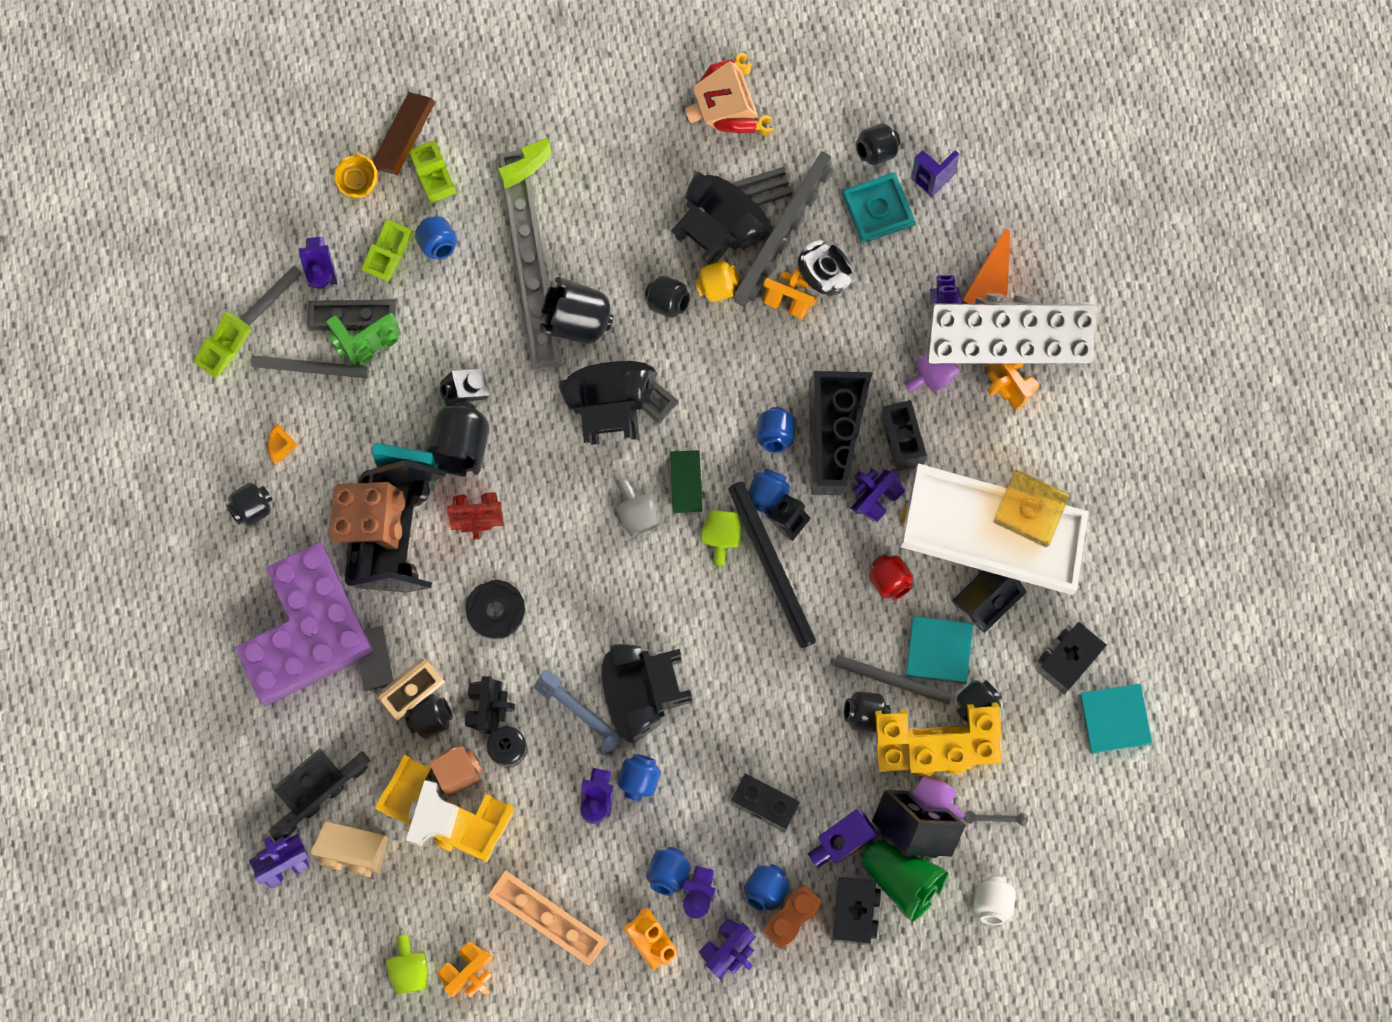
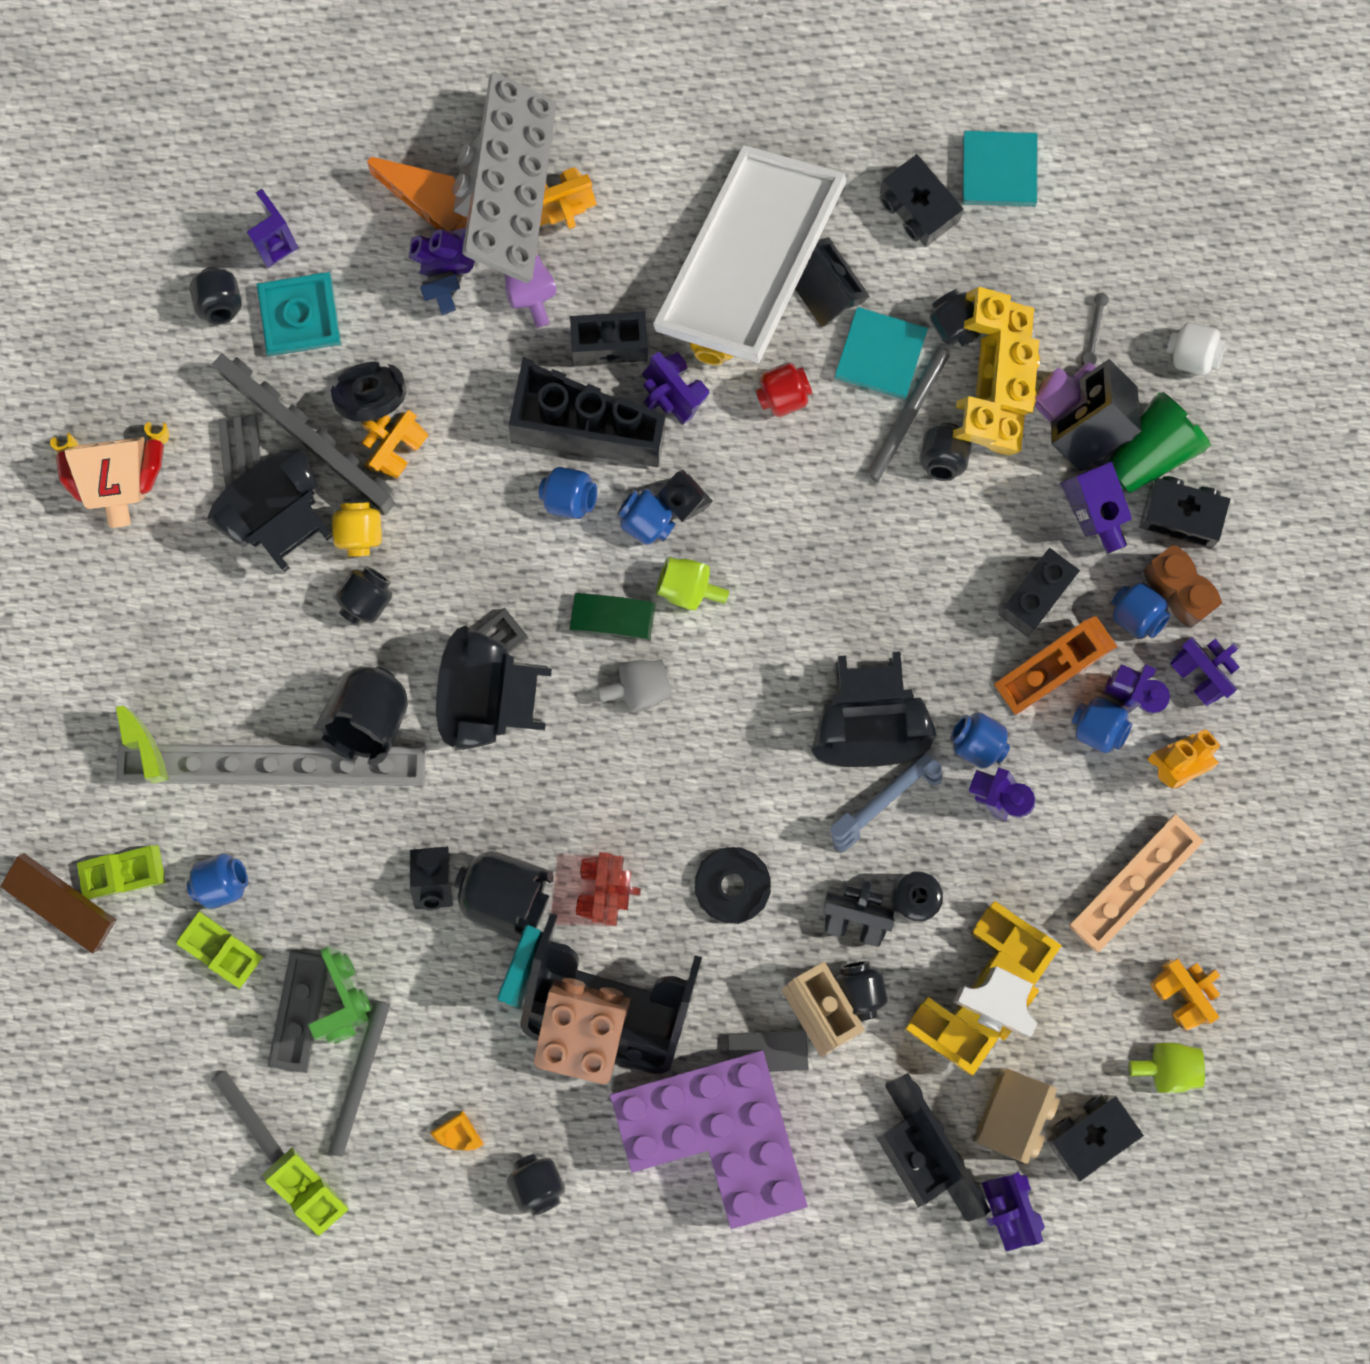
camera: 85 degrees left, 5 degrees up
(317, 263) = (223, 1043): dark purple hips -> none
(327, 908) = (1083, 1156): none -> black brick
(351, 172) = (97, 979): yellow hair -> none
(456, 770) = (939, 963): nougat brick -> none
(711, 828) = (1055, 664): none -> orange slope
(772, 564) = (740, 529): black axle -> none
(914, 306) = (441, 291): none -> dark blue tile
(1031, 508) = (733, 204): clear yellow plate -> none

